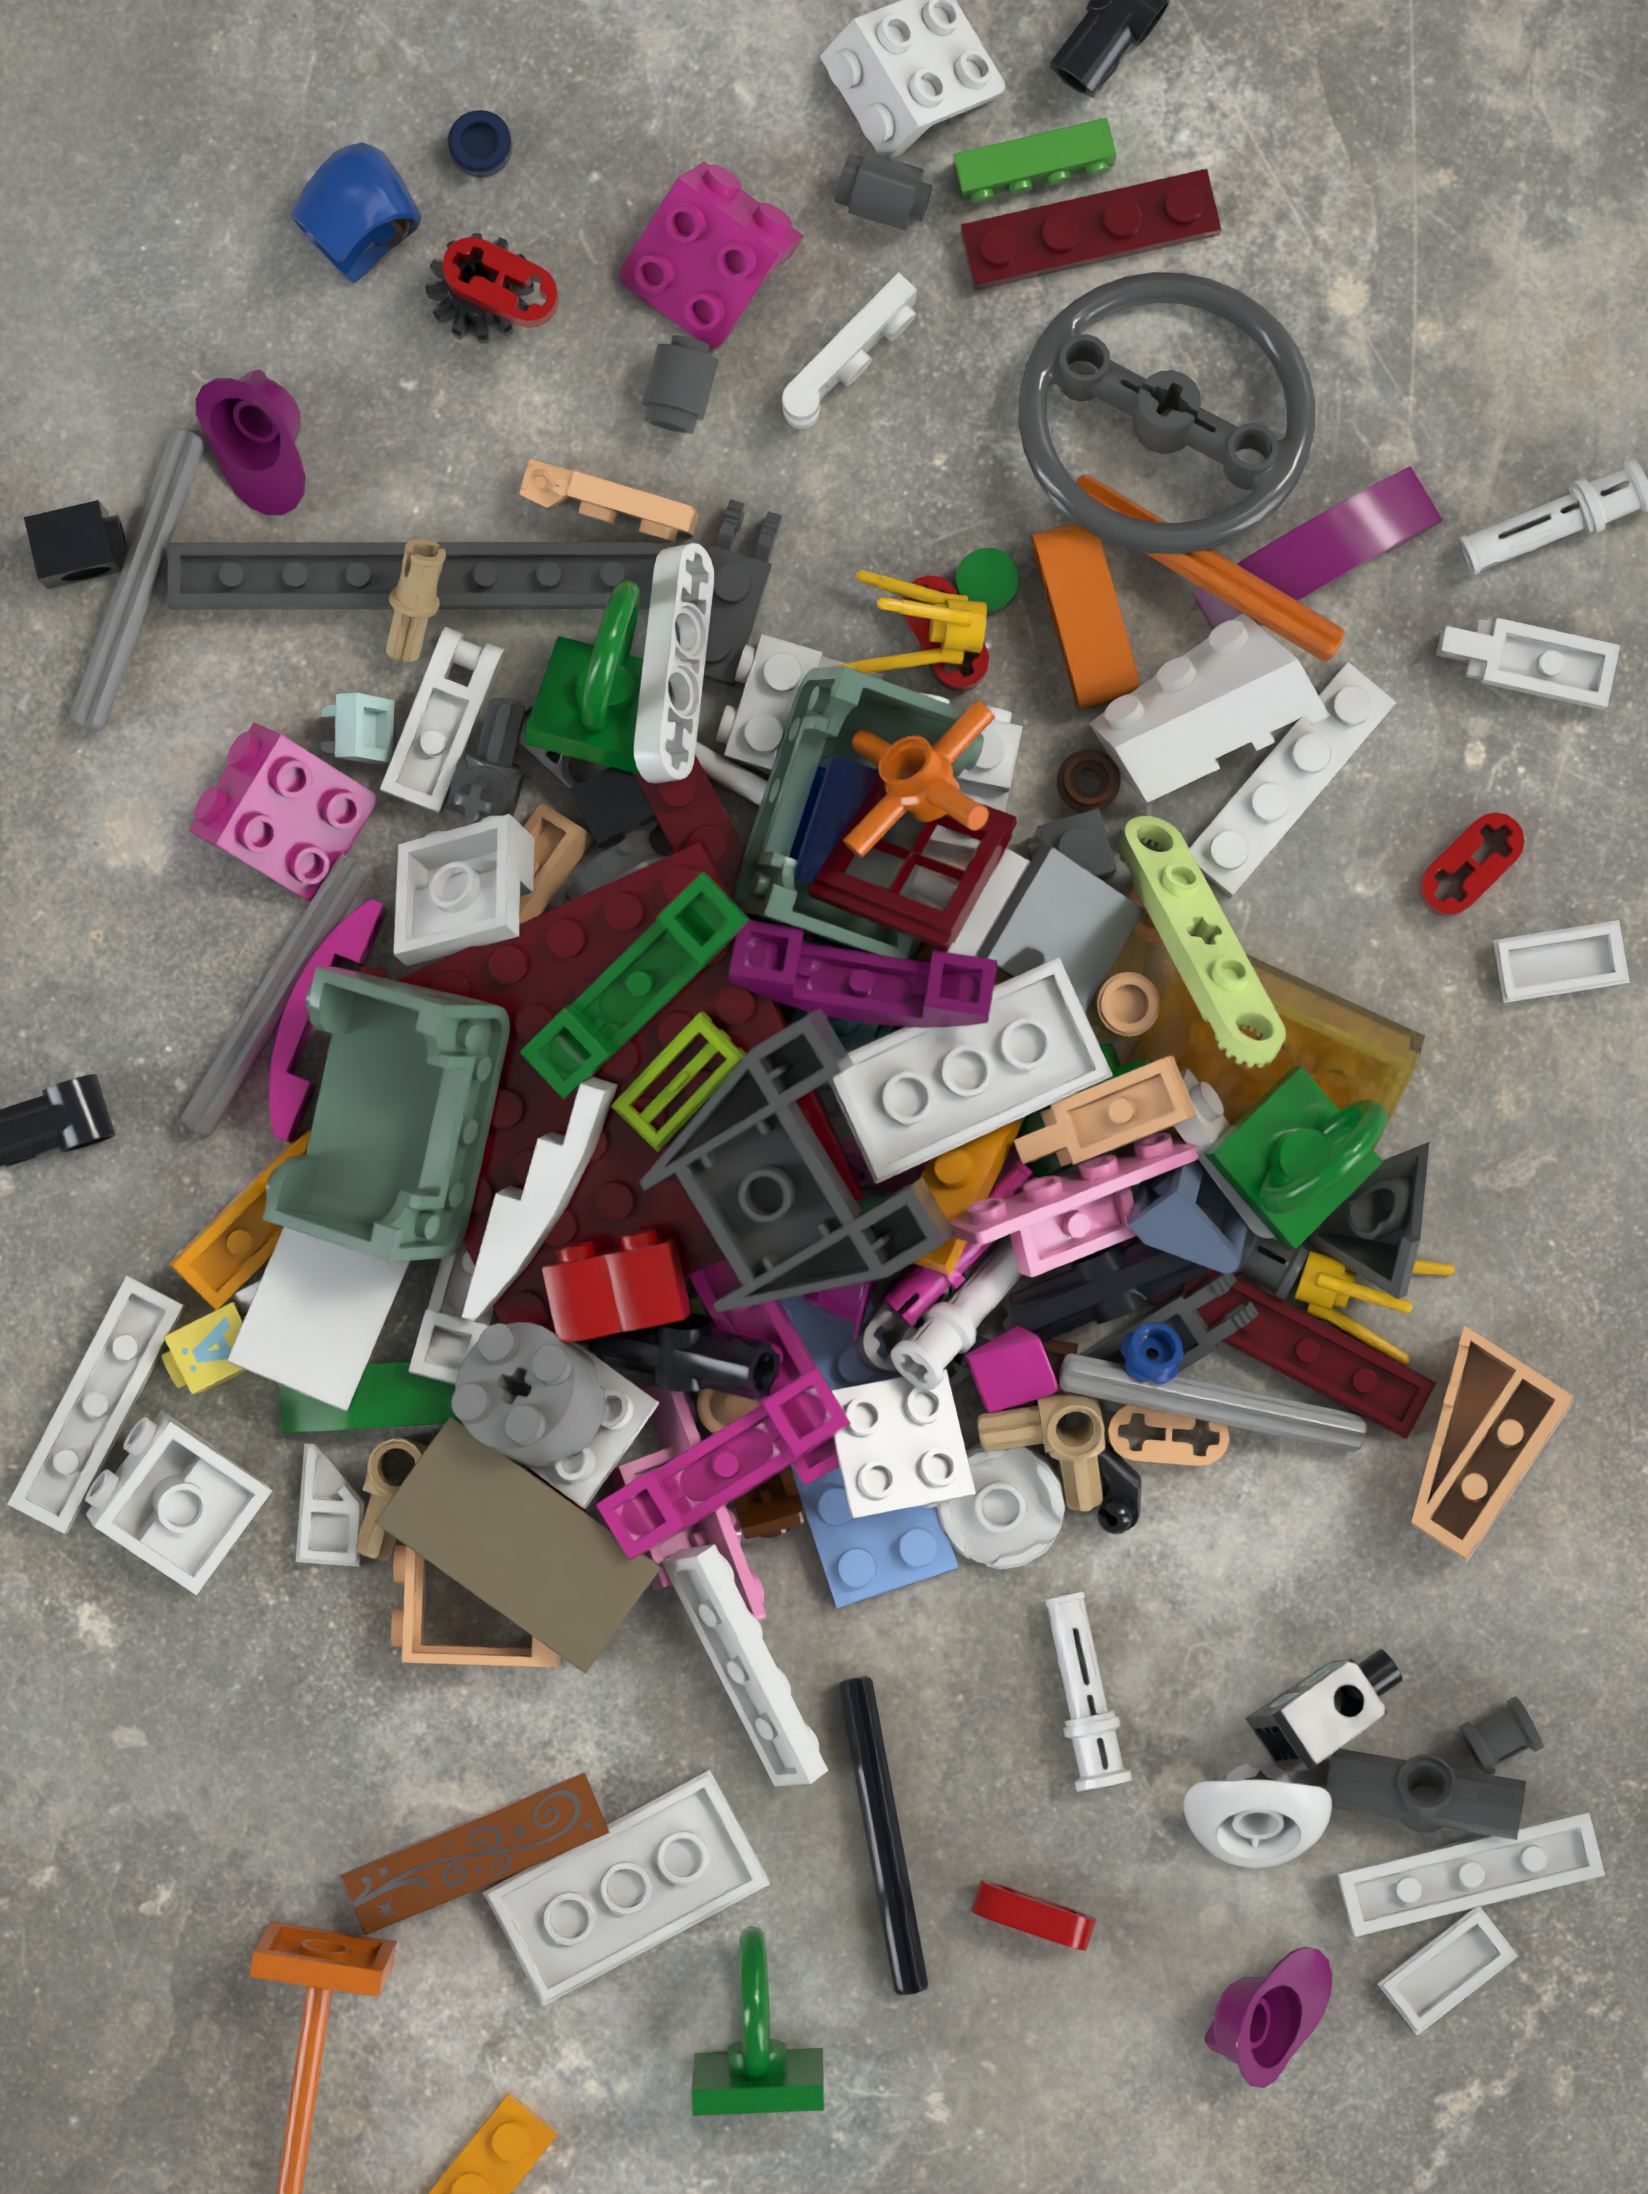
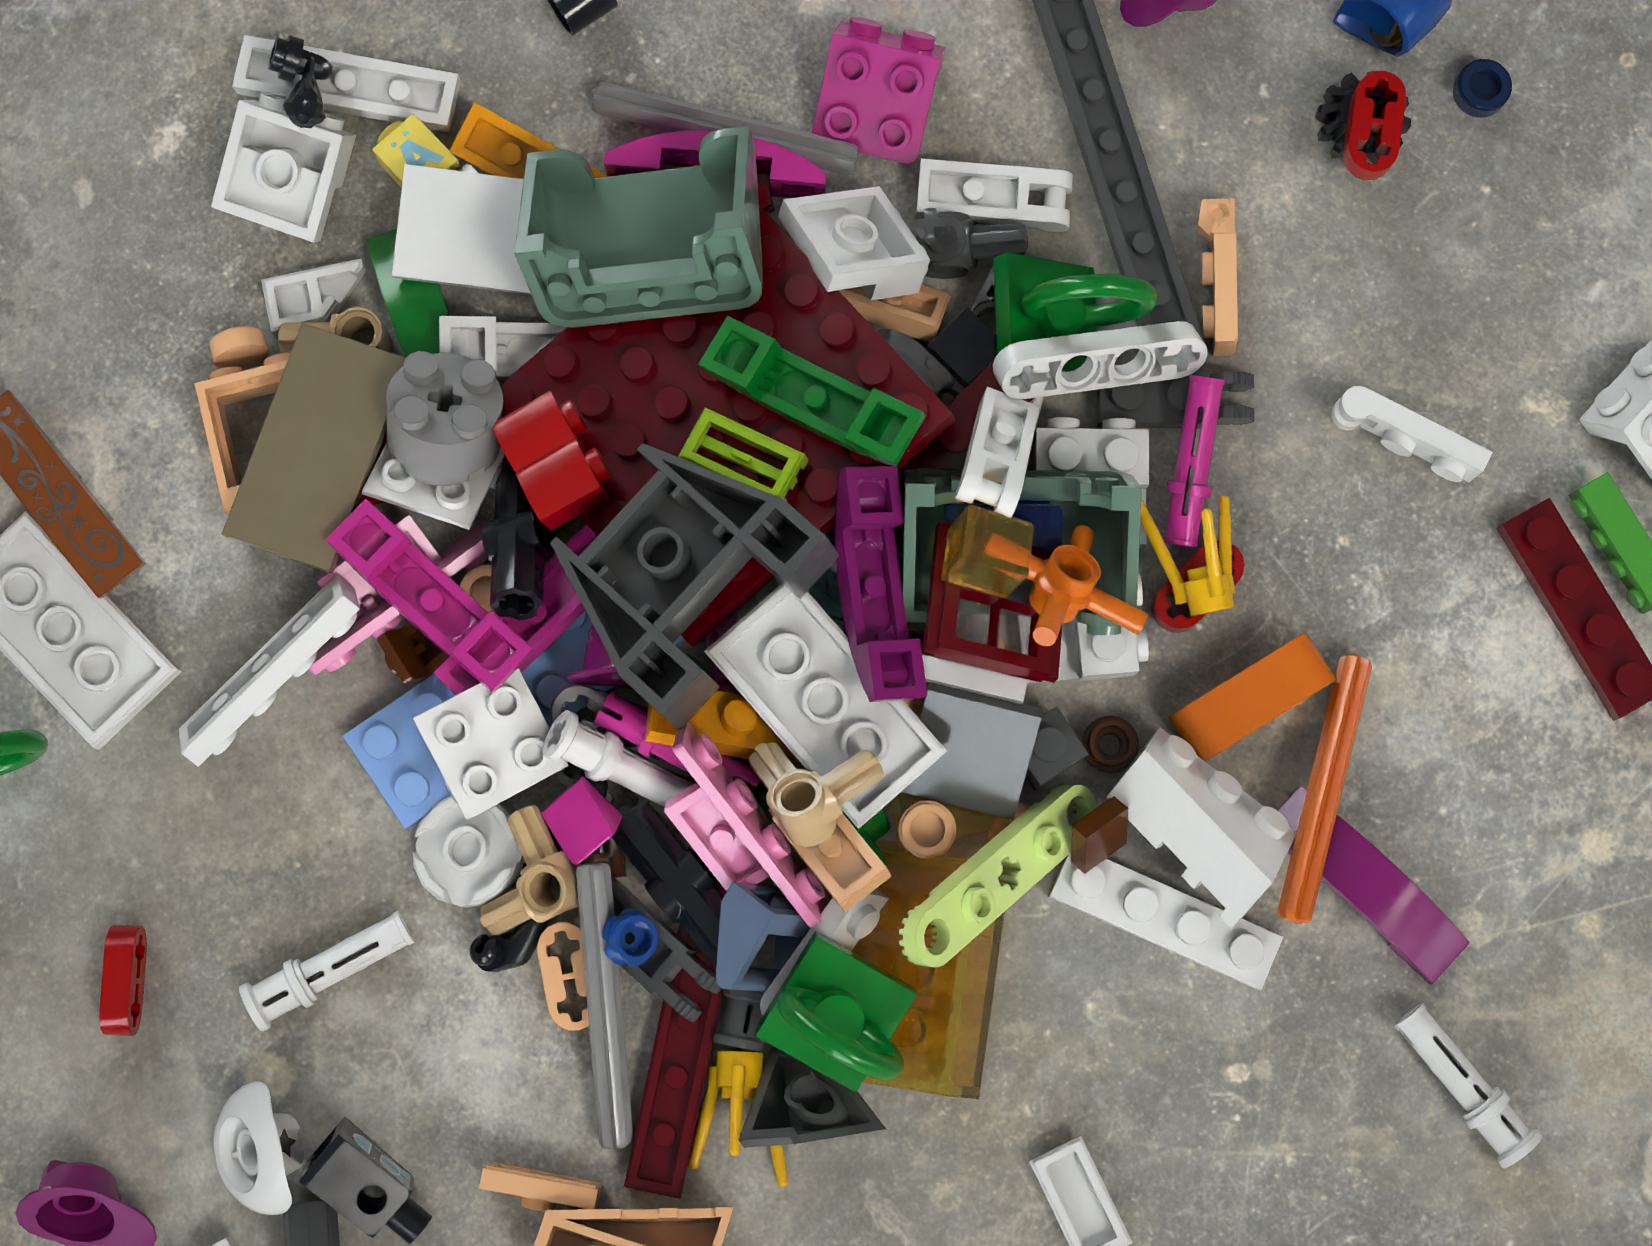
camera: 70 degrees right, 5 degrees down
(57, 1461) = (304, 102): none -> black piece
(361, 728) = (967, 130): light aqua tile -> none
(368, 1606) = (239, 347): none -> light nougat tile
(414, 598) = (1087, 136): tan axle -> none
(525, 1217) = (593, 368): white slope -> none
(679, 384) = (1336, 304): dark grey brick -> none
(708, 252) = (1456, 295): dark pink bracket -> none
(752, 804) = (998, 452): none -> white plate
(861, 849) = (987, 551): none -> clear yellow panel
(876, 628) = (1184, 528): none -> dark pink pin
(883, 190) = (1556, 423): dark grey brick -> none
(883, 1835) = (159, 832): black axle -> none
(988, 577) = (1256, 609): green tile -> none
(1053, 1129) = (797, 788): none -> tan axle
(1183, 426) = (1447, 717): dark grey piece -> none
(1185, 823) = (1099, 834): none -> reddish brown tile
(1384, 1526) = (539, 1188): none -> light nougat plate
(1482, 874) = (1147, 1084): red beam -> none
(1534, 660) = (1336, 1101): white hinge -> none

